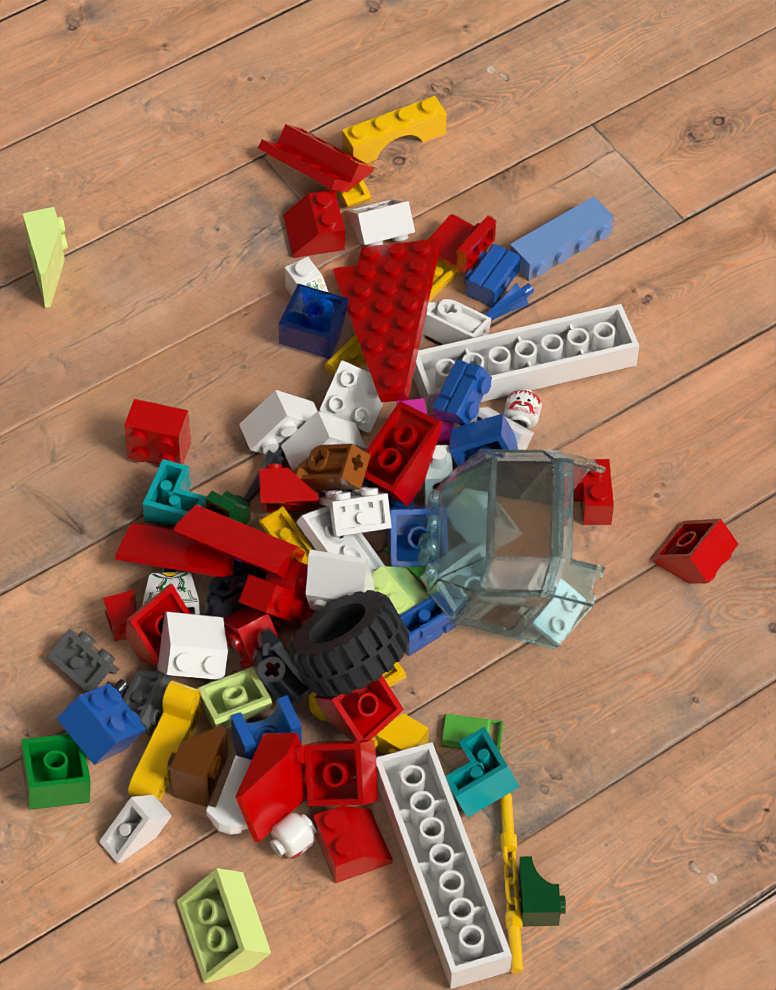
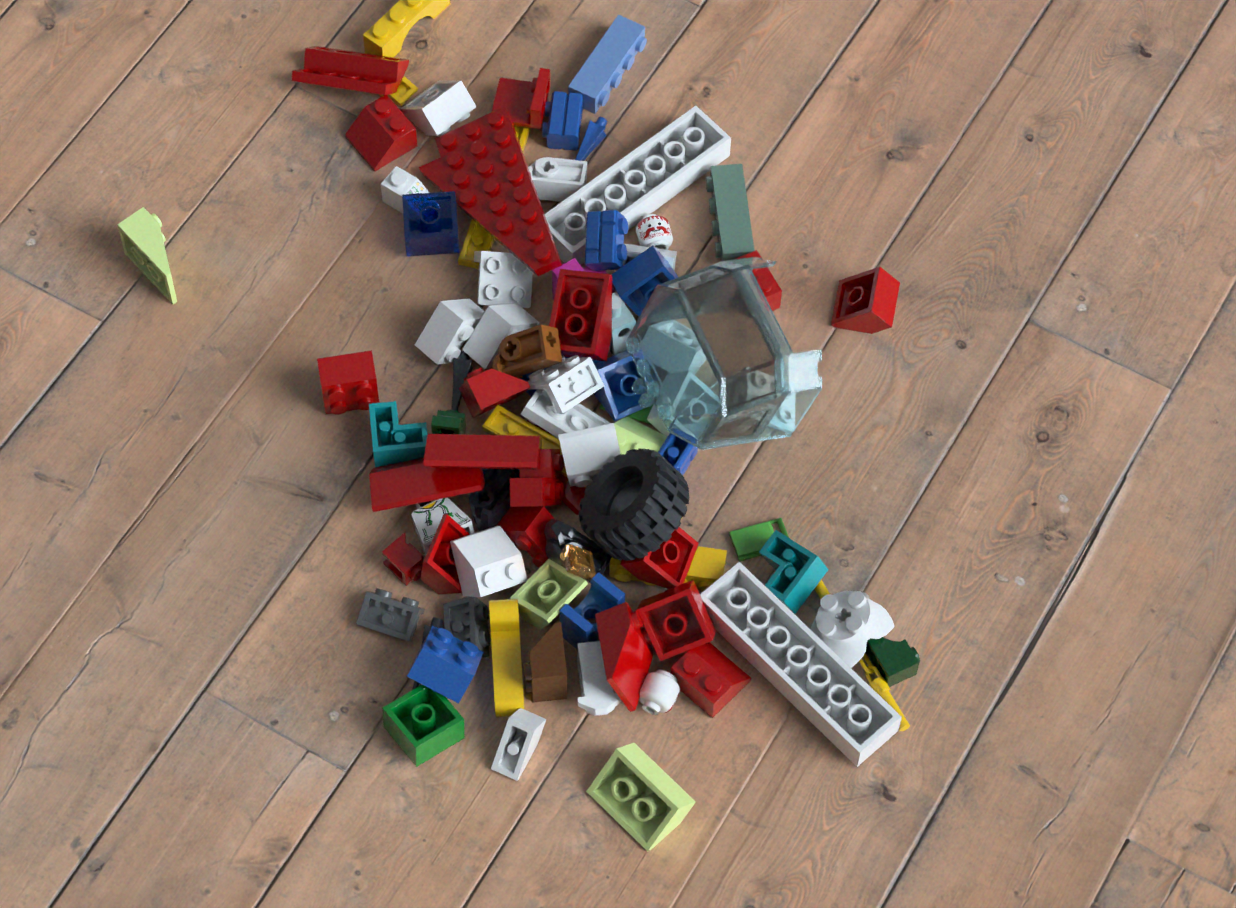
camera: 25 degrees left, 5 degrees up
(273, 678) = (579, 562): none -> clear orange tile
(510, 842) = (847, 623): none -> white brick
(607, 414) = (731, 211): none -> sand green brick

